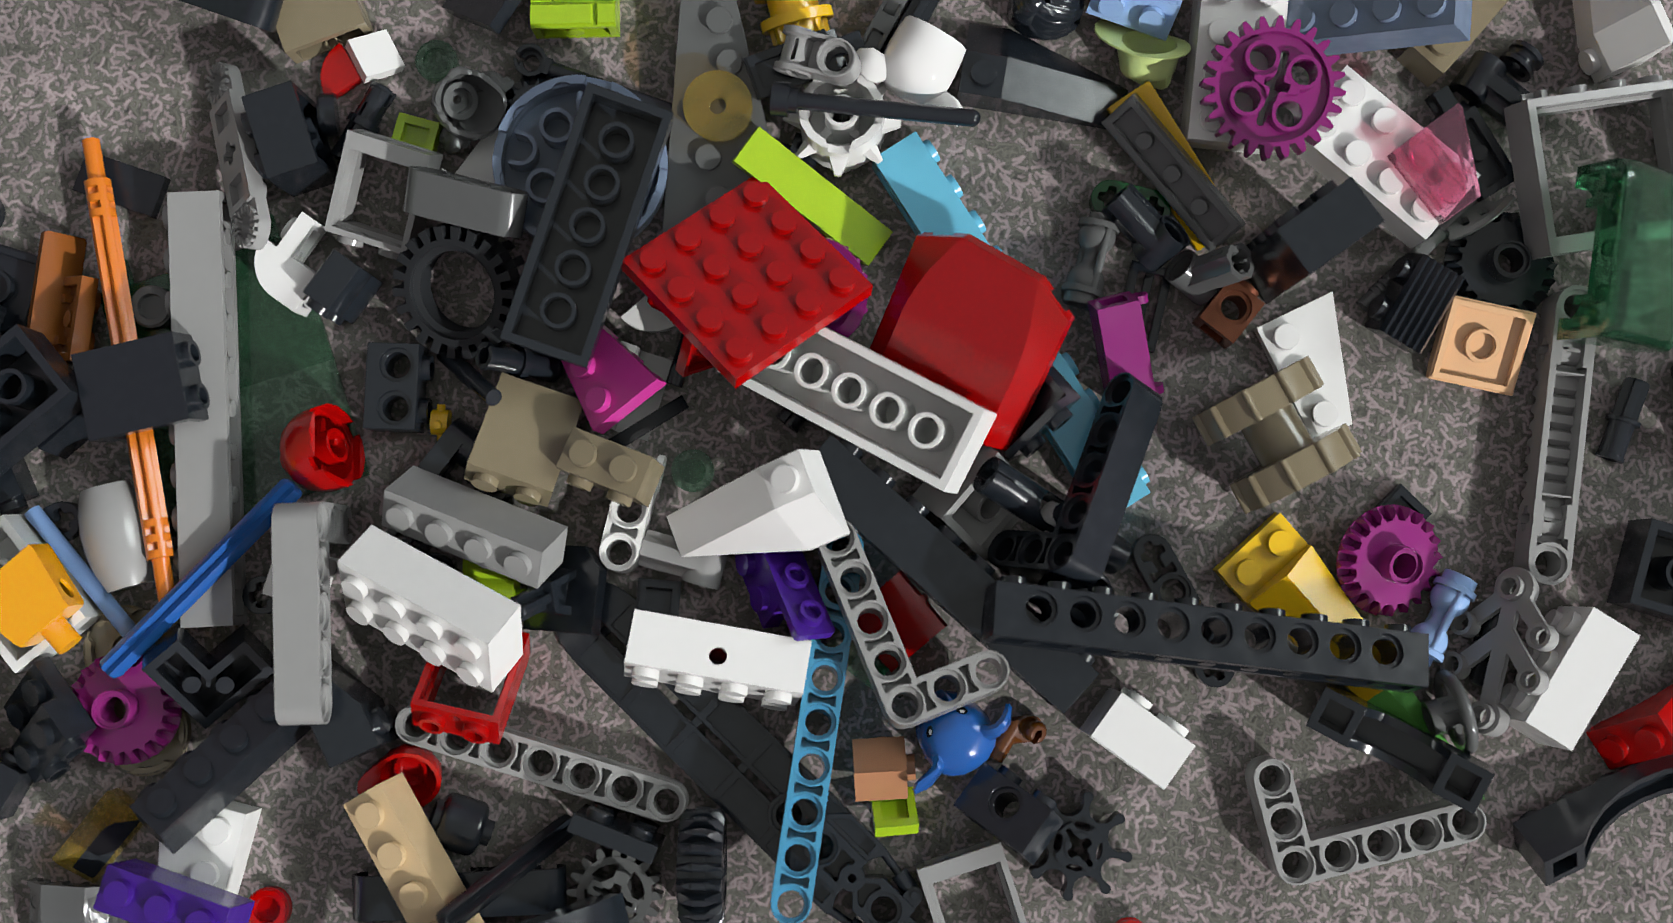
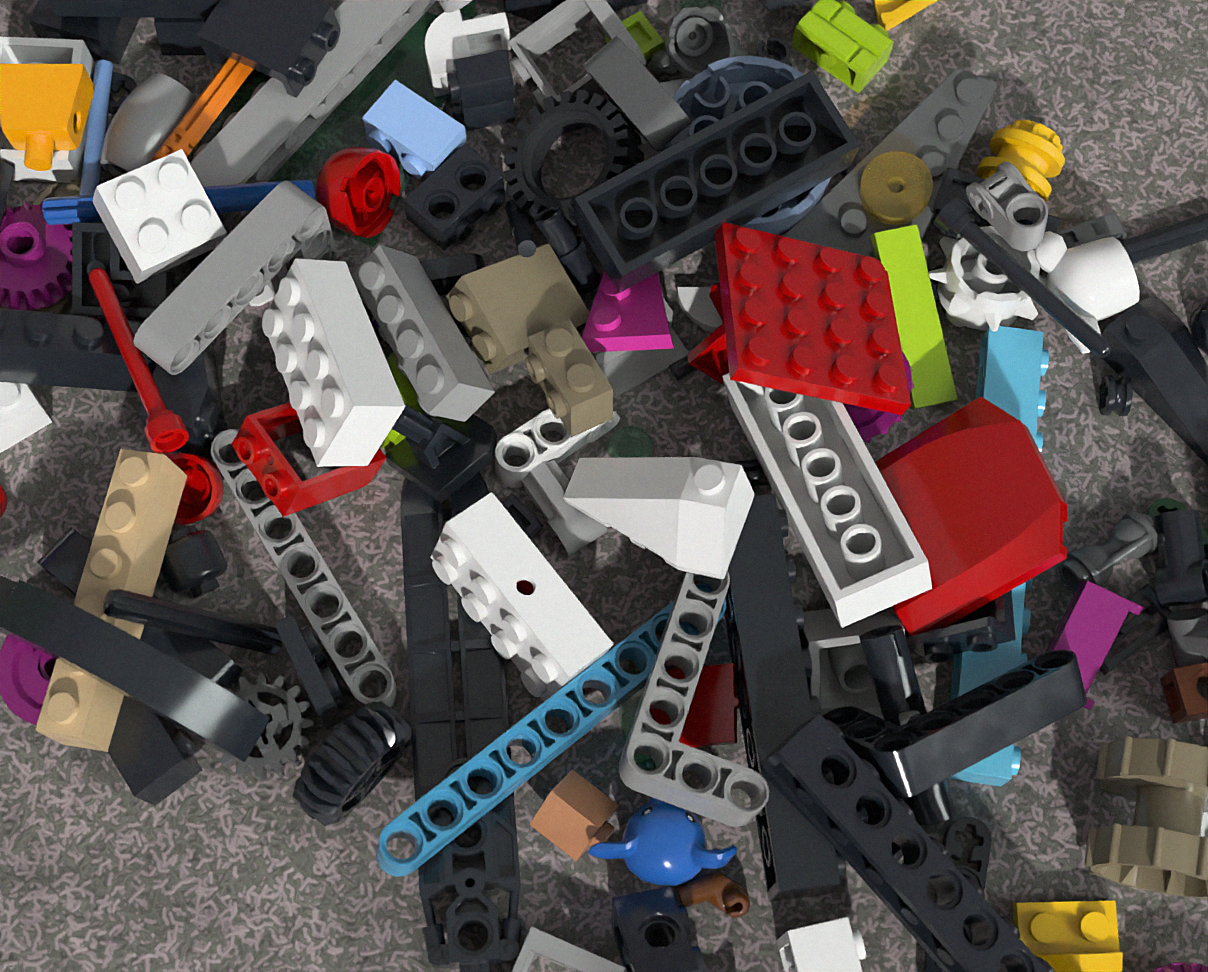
camera: 35 degrees right, 15 degrees down
(204, 612) = (158, 216): none -> white brick
(319, 365) = (412, 130): none -> light blue brick
(361, 766) = (163, 428): none -> red piece
(440, 420) = (466, 245): yellow piece -> none
(650, 422) = (639, 383): black sticker -> none
(784, 588) = (625, 591): dark purple bracket -> none
(895, 816) = (552, 868): lime plate -> none
(1002, 132) = (1115, 395): none -> black bush

